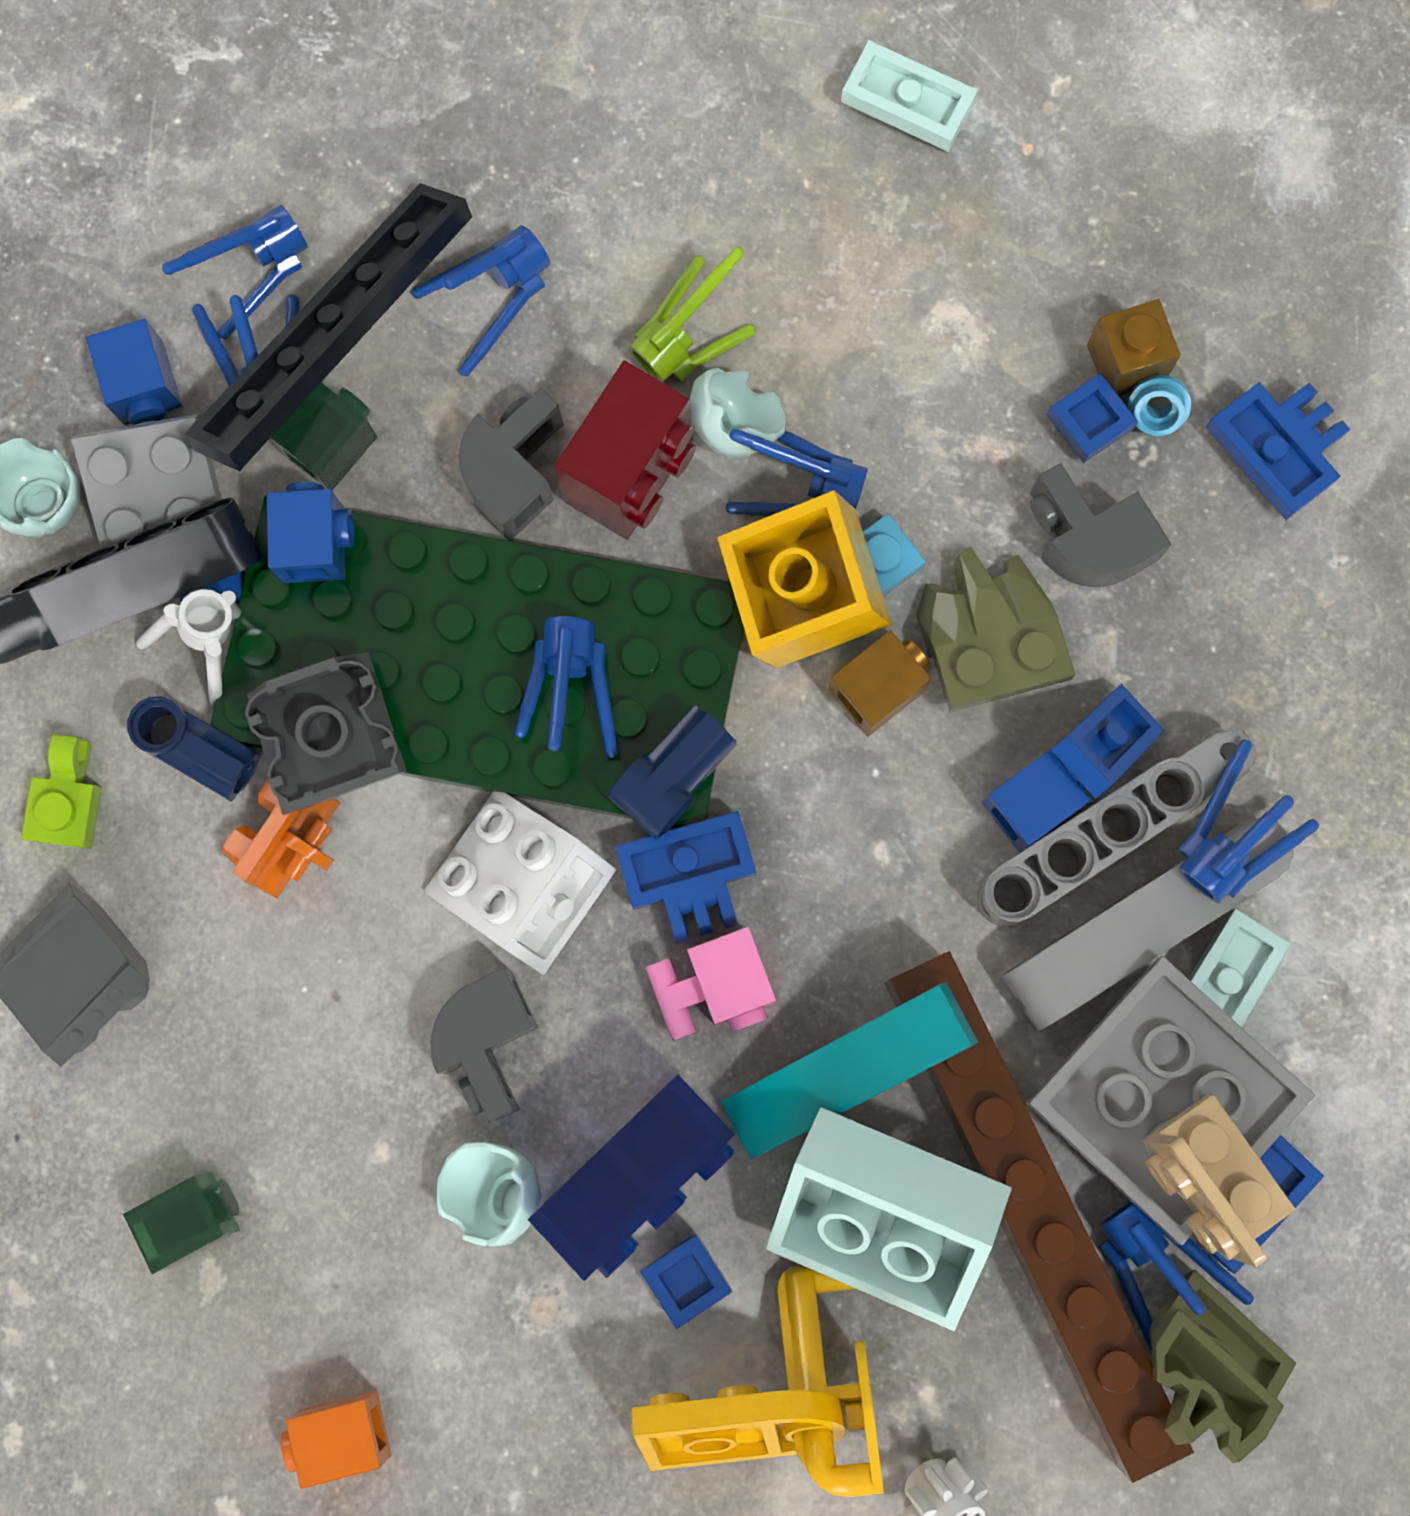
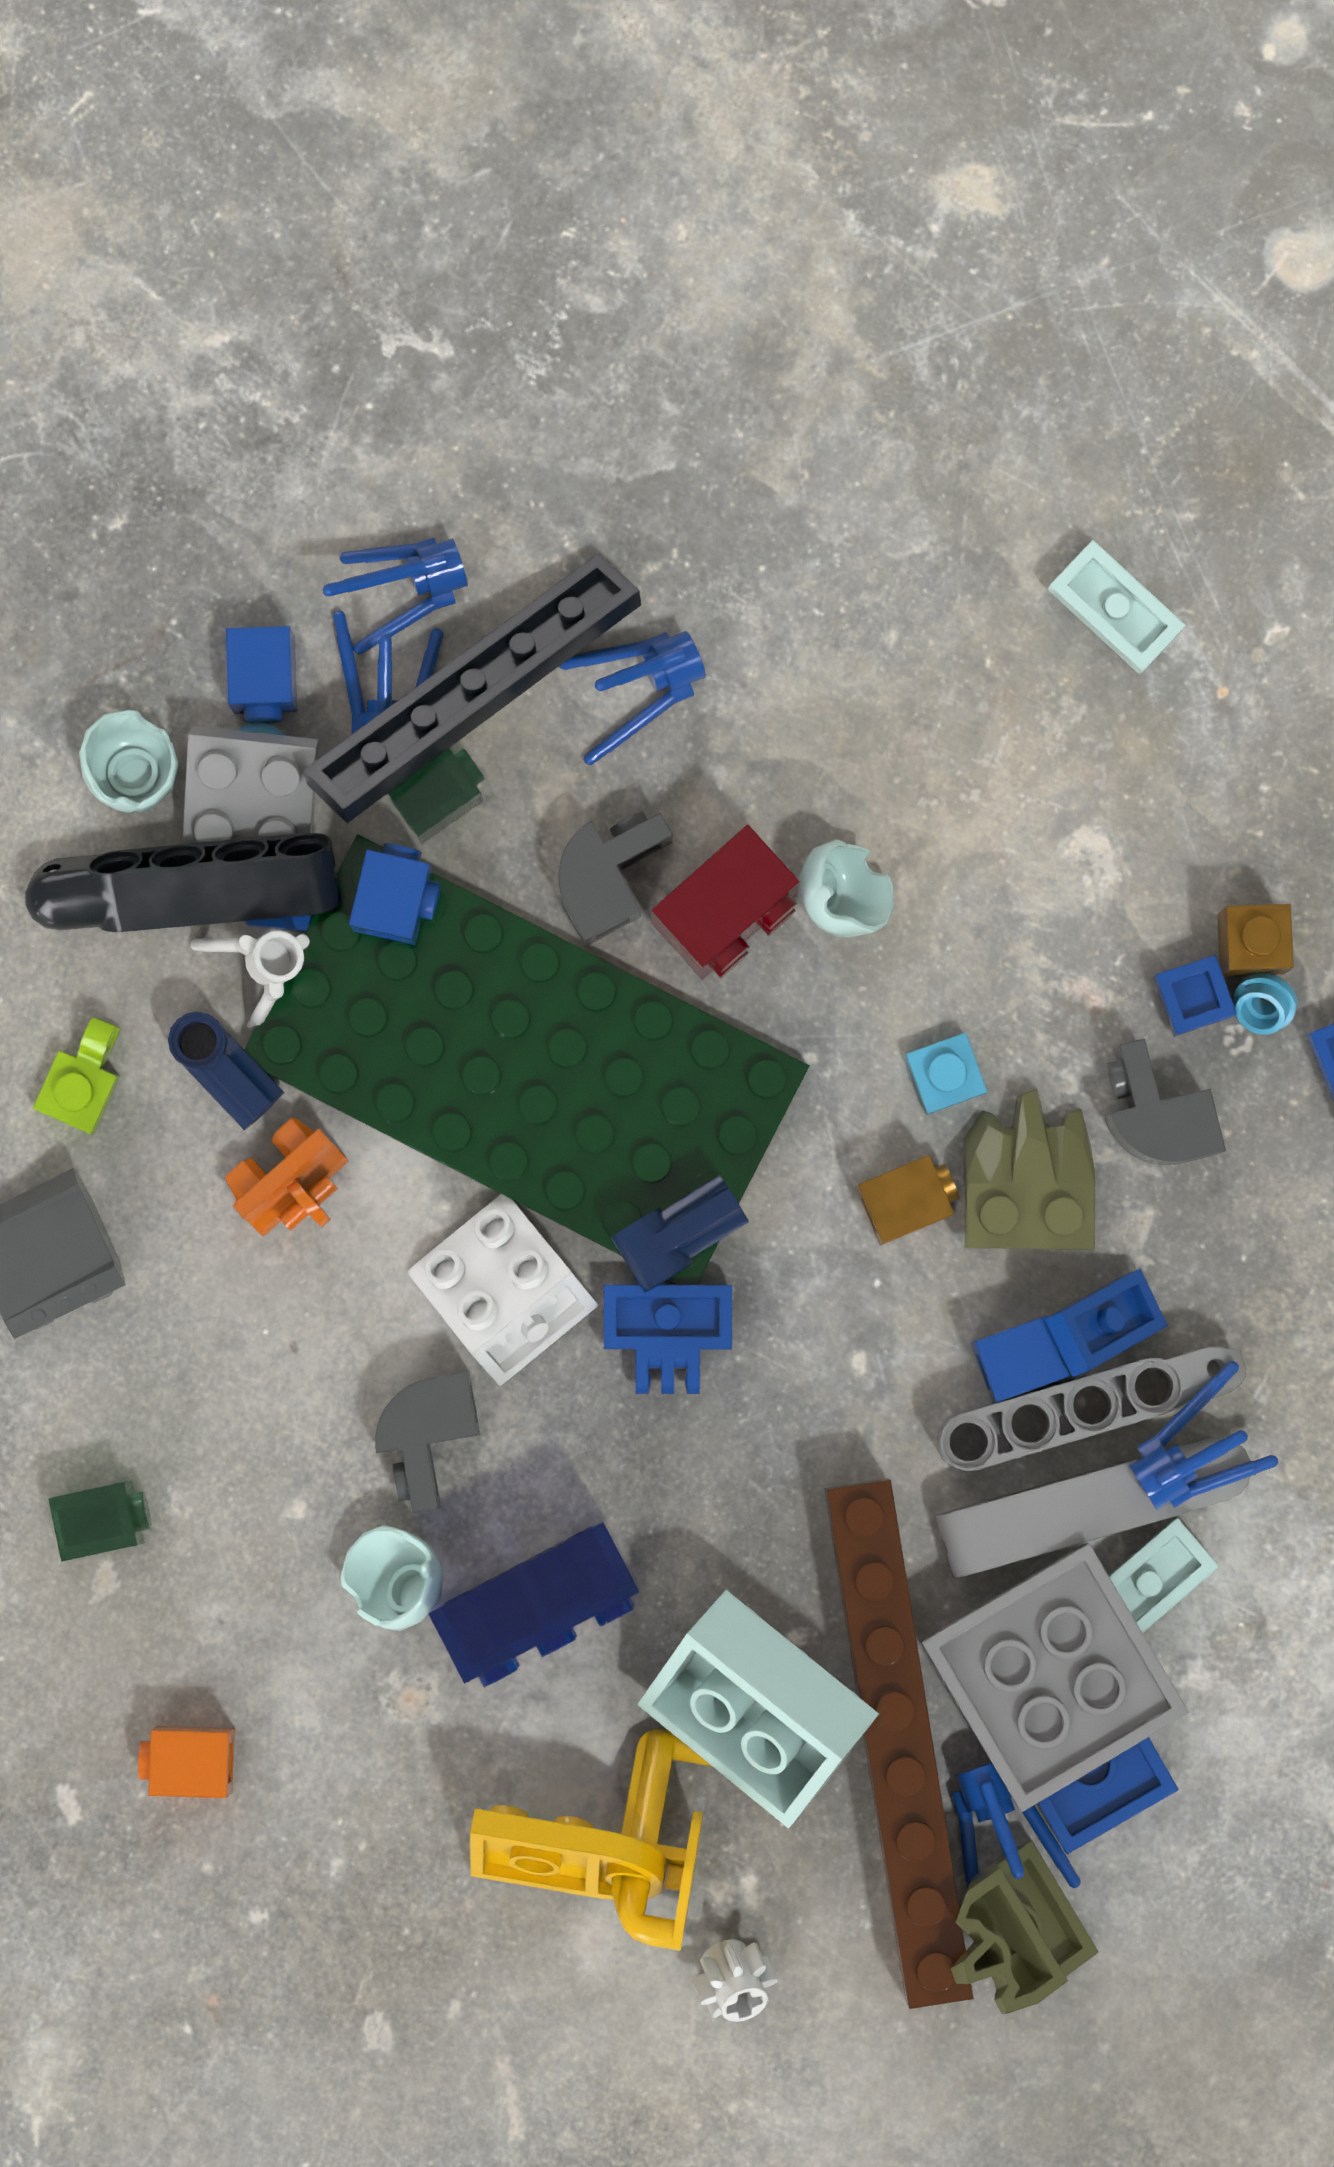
camera: 10 degrees right, 5 degrees up
(324, 731) = (359, 1098): dark grey slope -> none
(566, 652) = (613, 1084): blue plant -> none
(663, 342) = (796, 796): lime plant -> none
(686, 1281) = (554, 1712): blue plate -> none
(726, 978) = (674, 1441): bright pink brick -> none
(804, 580) = (860, 1082): yellow brick -> none
(829, 471) = (921, 986): blue plant -> none
(850, 1070) = (763, 1563): teal tile -> none
(1219, 1179) = (1072, 1759): tan bracket -> none

